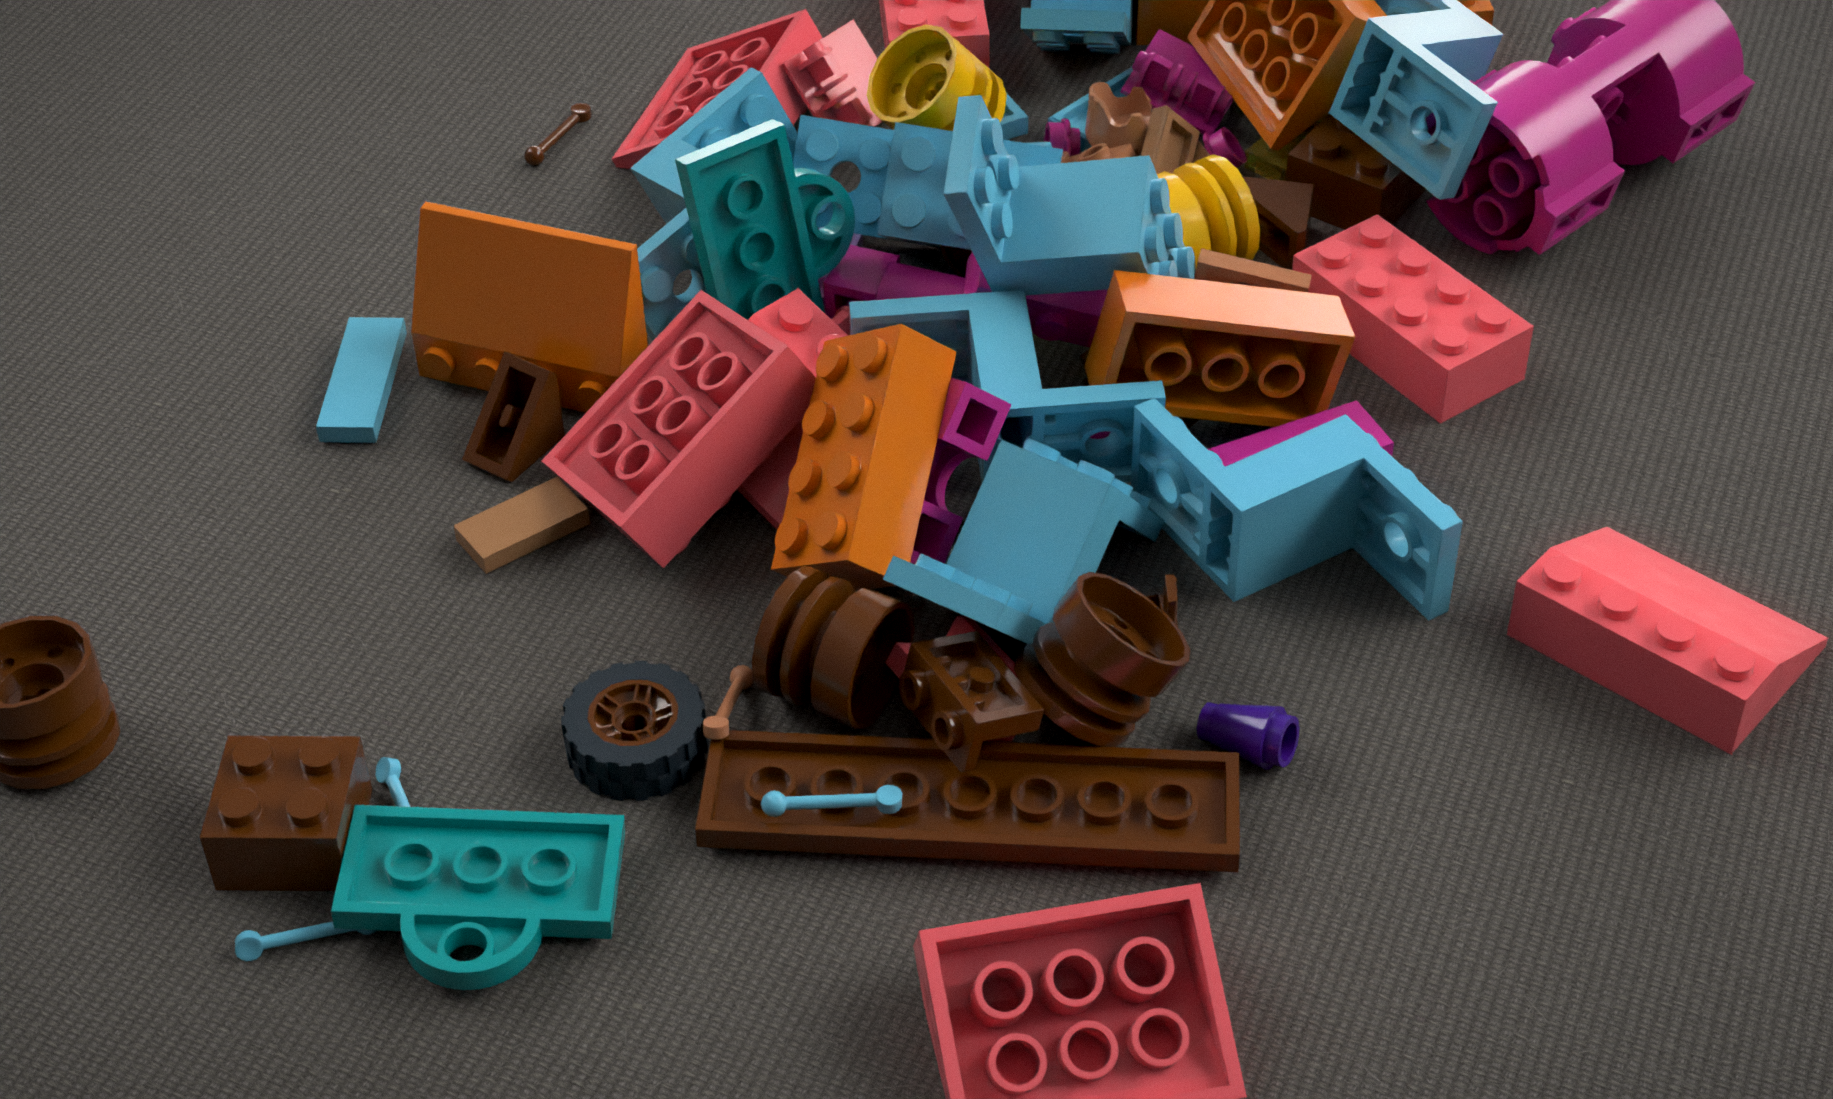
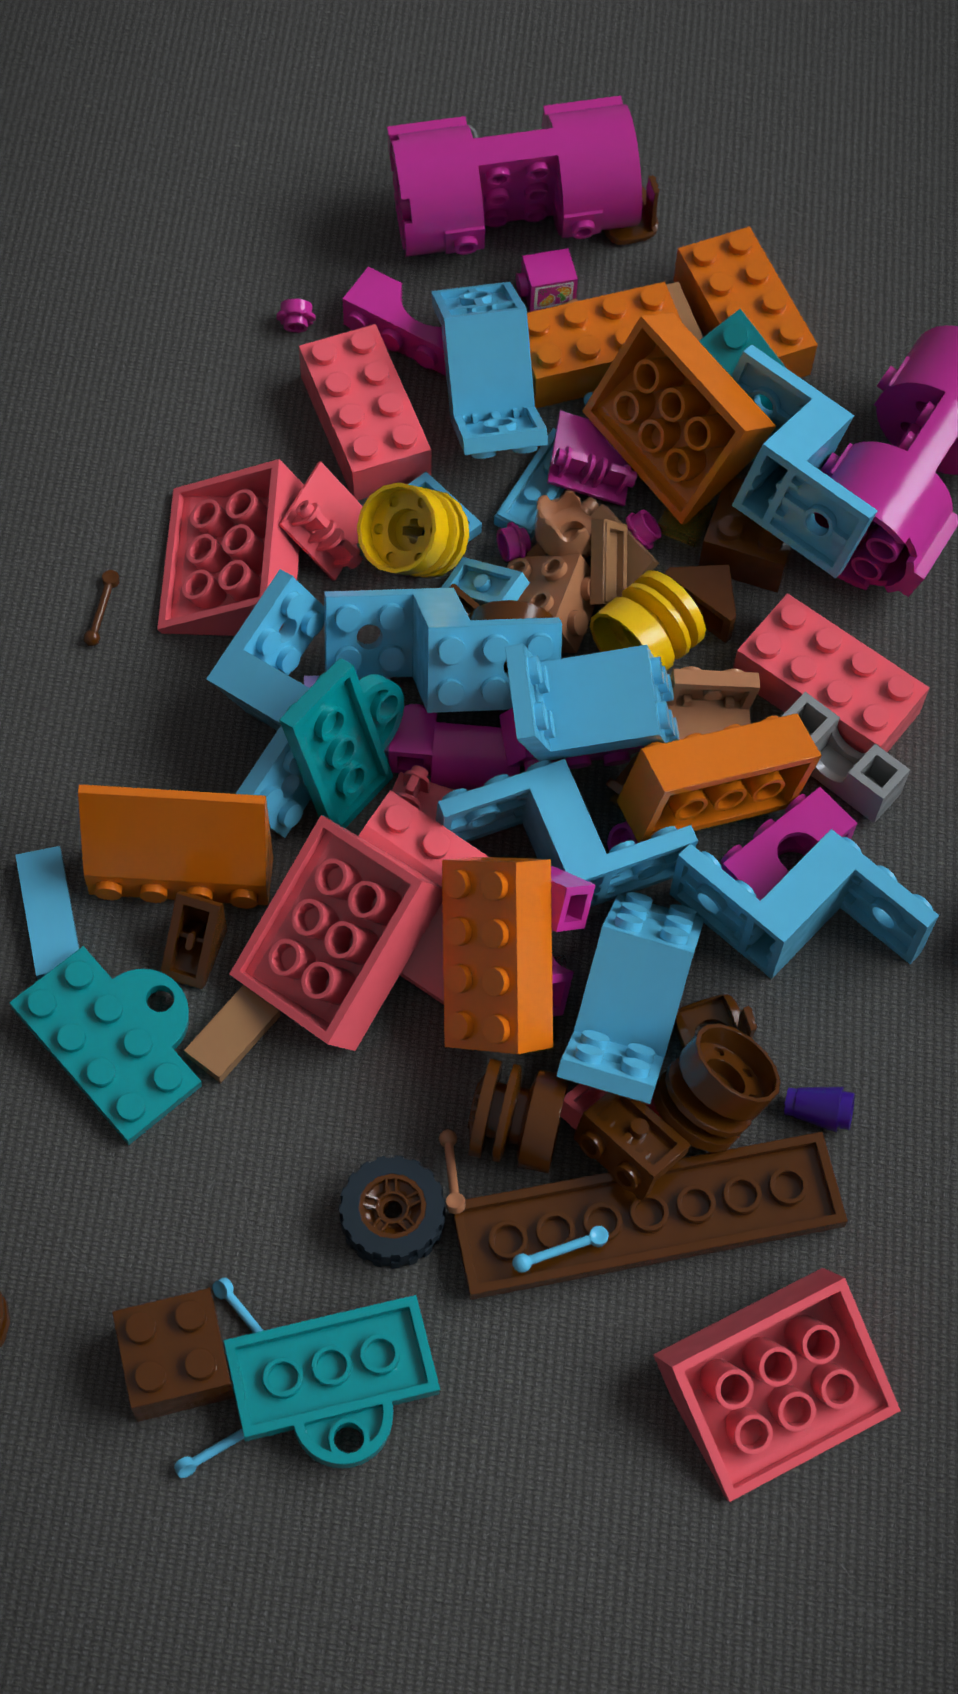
camera: 20 degrees left, 20 degrees up
(377, 500) = (112, 1039): none -> teal plate
(1421, 412) = (862, 780): none -> light grey arch

